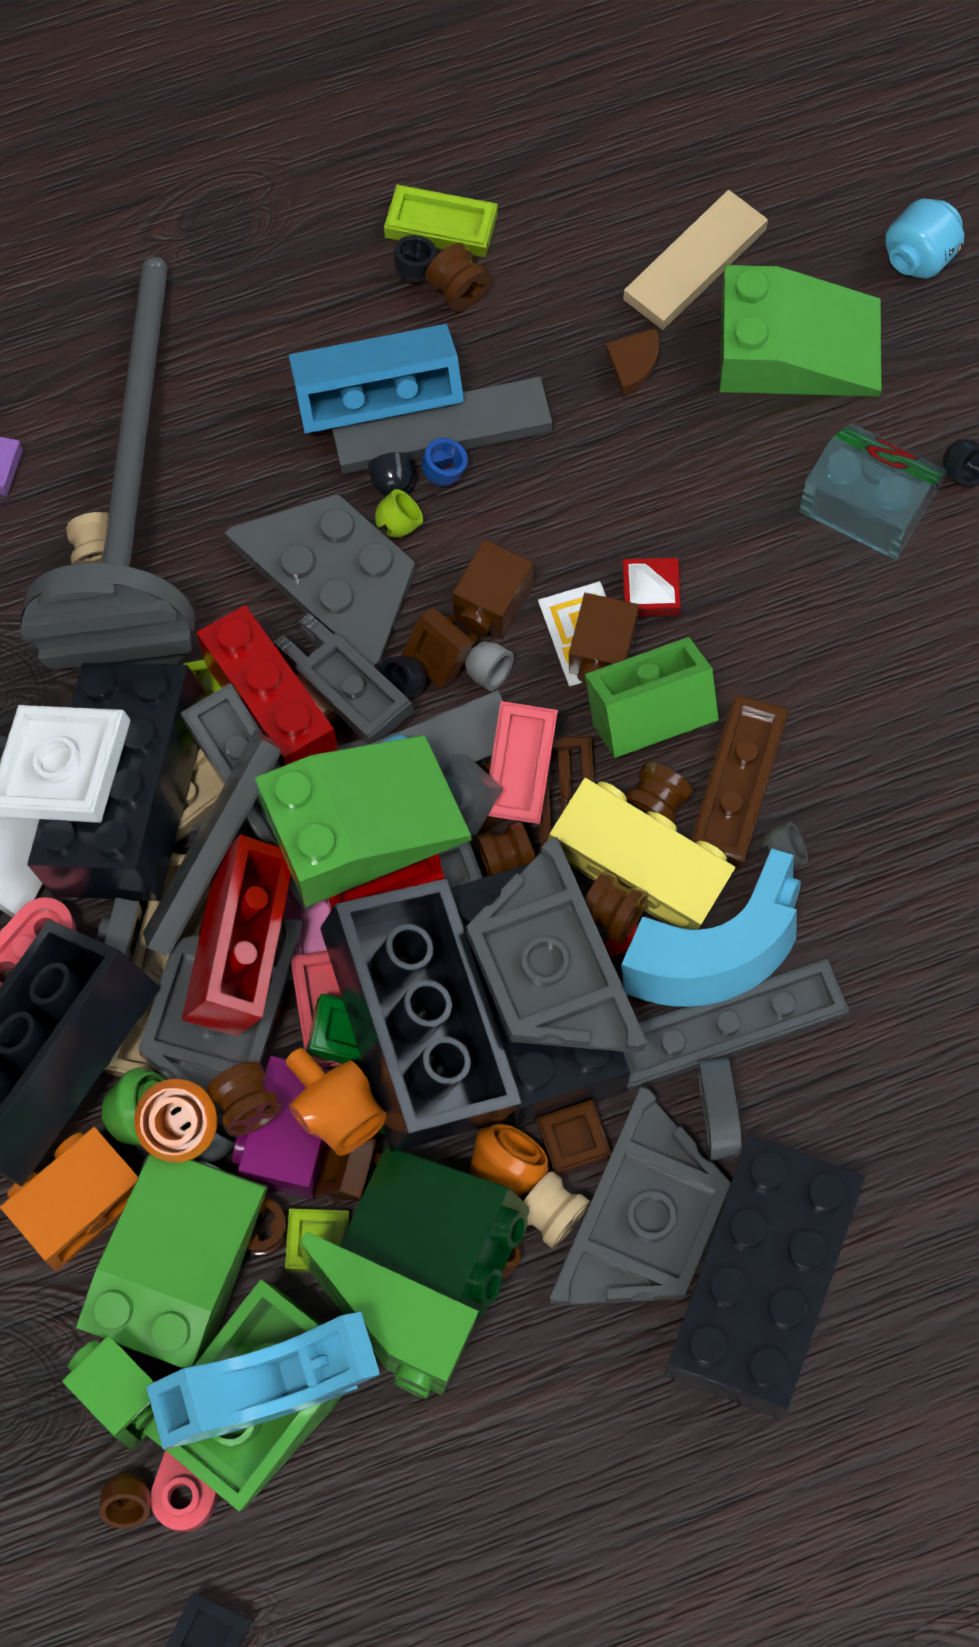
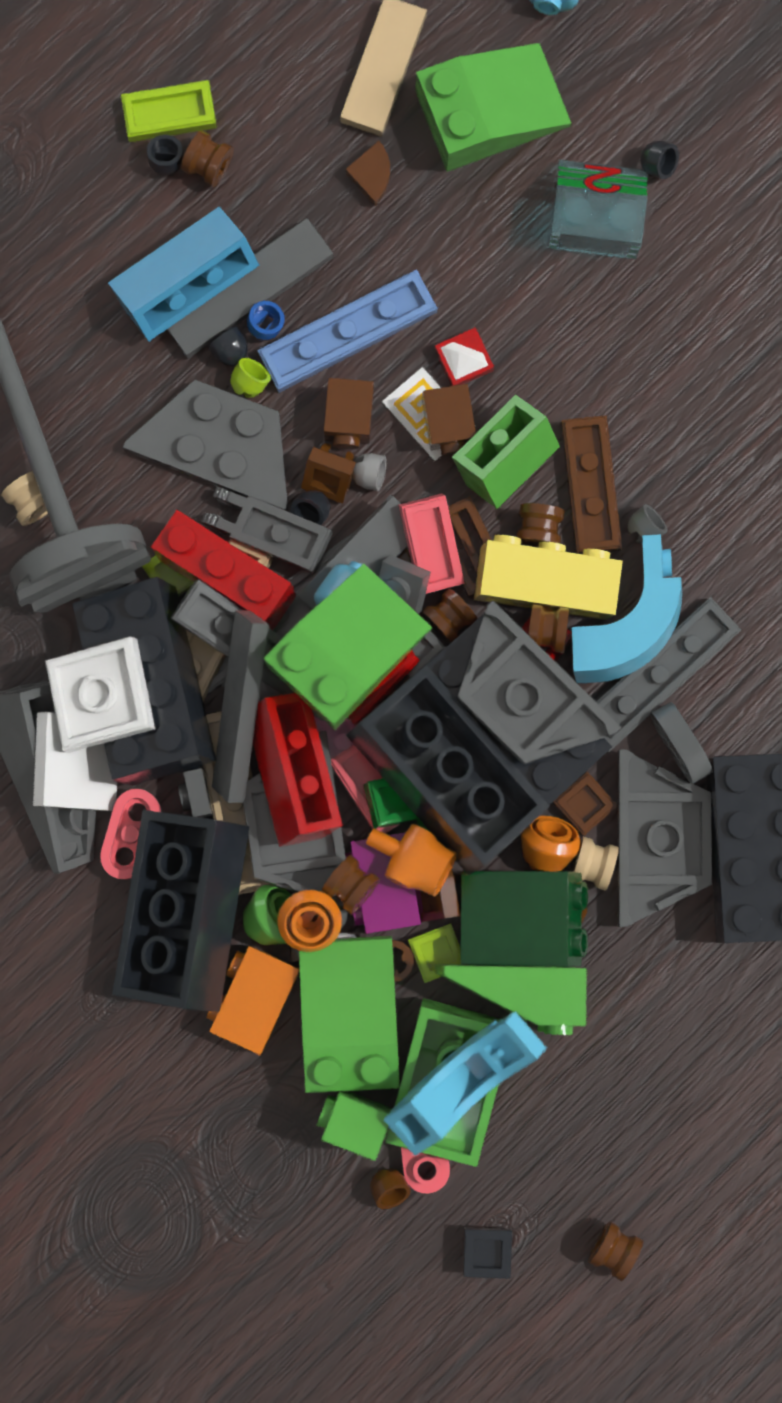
camera: 30 degrees left, 15 degrees up
(532, 510) = (347, 331): none -> medium blue tile

